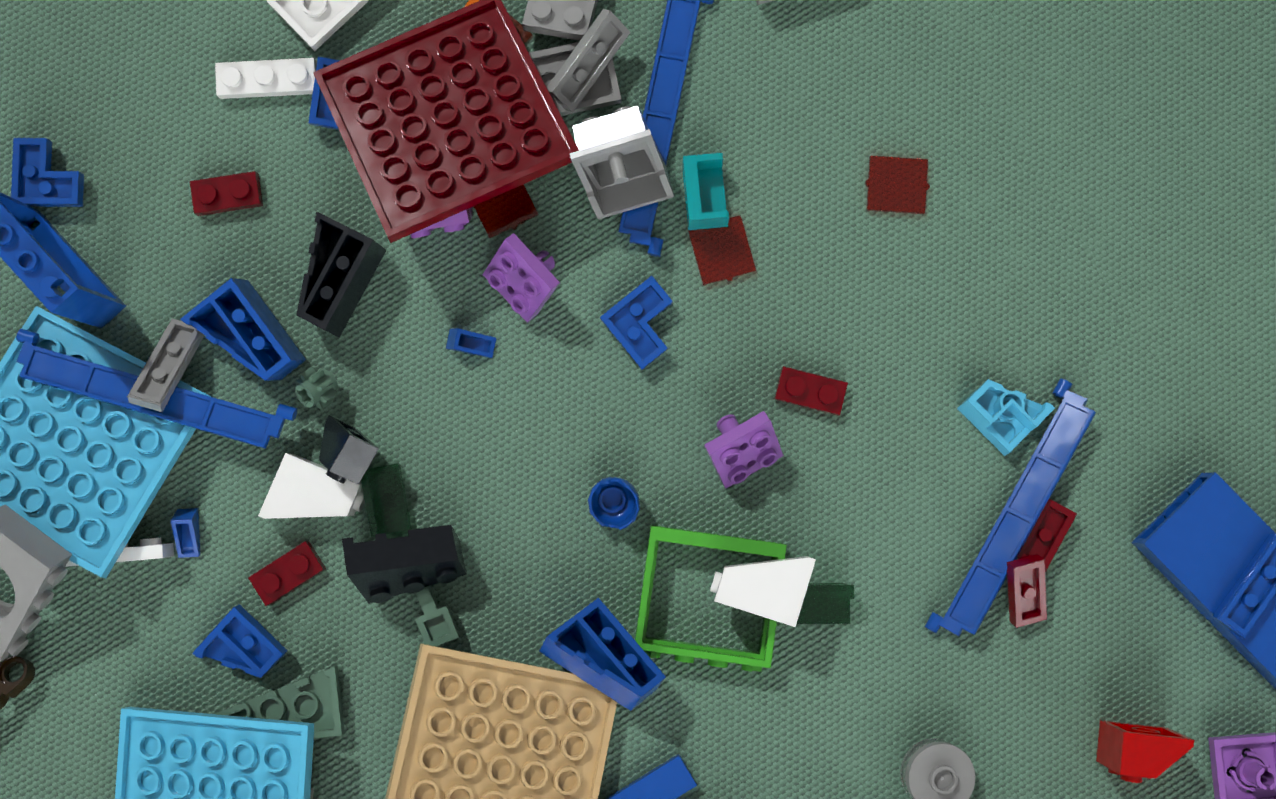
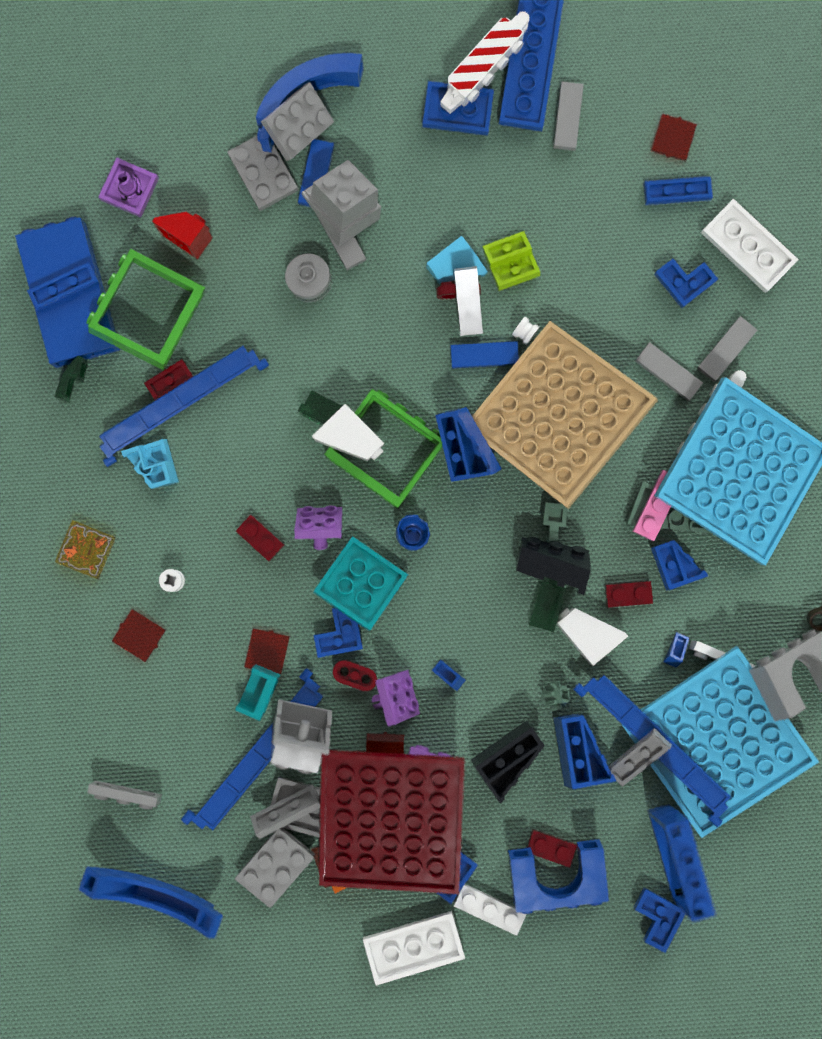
camera: 155 degrees left, 0 degrees up
(155, 165) = (586, 888): none -> blue arch
(306, 700) = (652, 513): none -> bright pink plate
(345, 451) = (556, 647): black slope -> none
(591, 276) = (354, 678): none -> dark red plate
(647, 400) = (360, 583): none -> teal plate
(889, 280) = (176, 579): none -> white wheel
(1027, 590) = (198, 354): plate -> none
(1028, 257) = (85, 549): none -> clear yellow tile
(1072, 615) = (105, 299): none -> bright green window
(1175, 479) = (74, 372): none -> clear green slope

